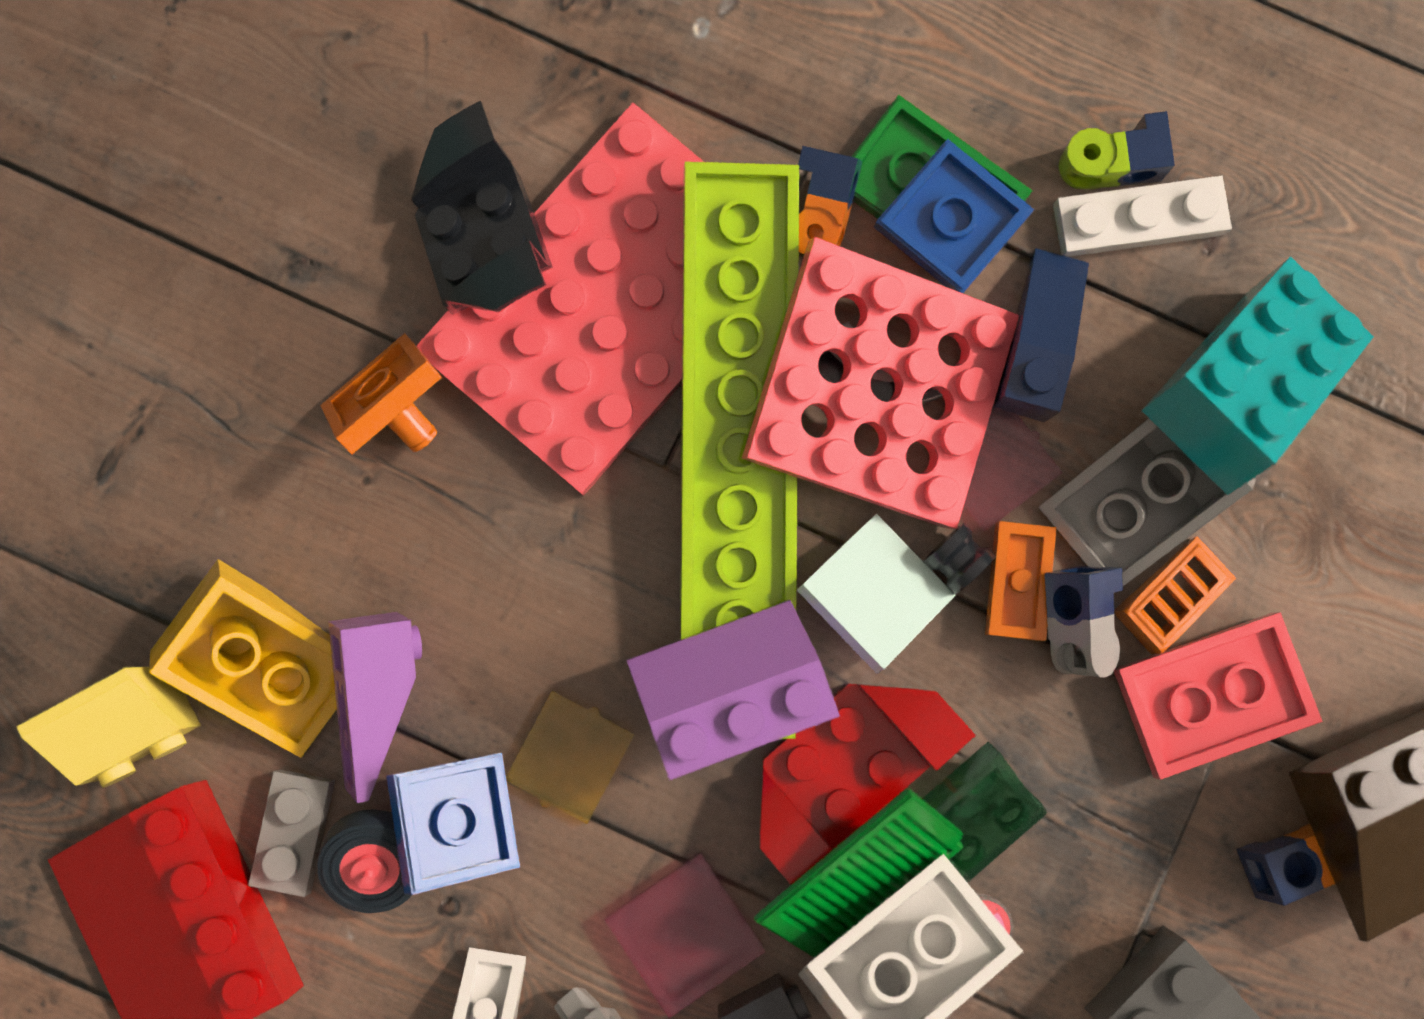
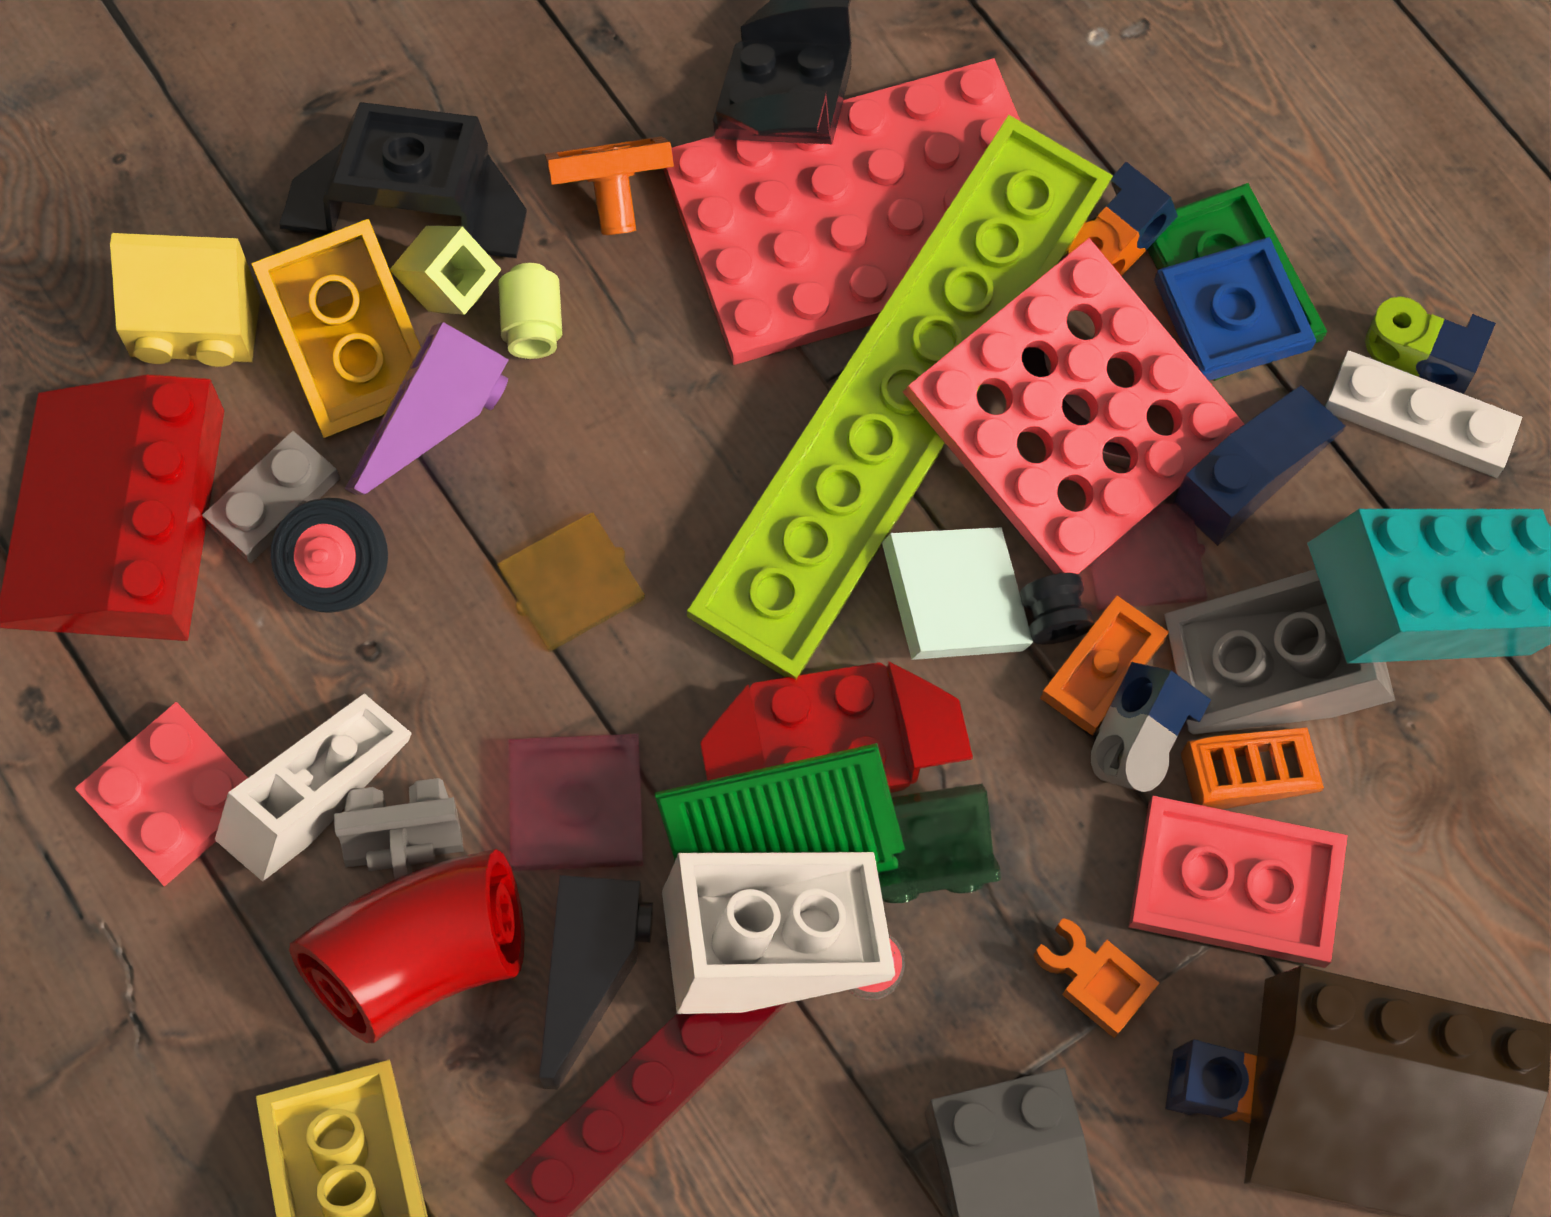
camera: 25 degrees right, 15 degrees down
(223, 489) = (414, 164): none -> black piece
(308, 566) = (445, 269): none -> yellowish green brick
(396, 555) = (530, 311): none -> yellowish green brick
(452, 822) = (428, 562): tile -> none
(732, 689) = (763, 586): medium lavender slope -> none
(1162, 836) = (1104, 983): none -> orange plate

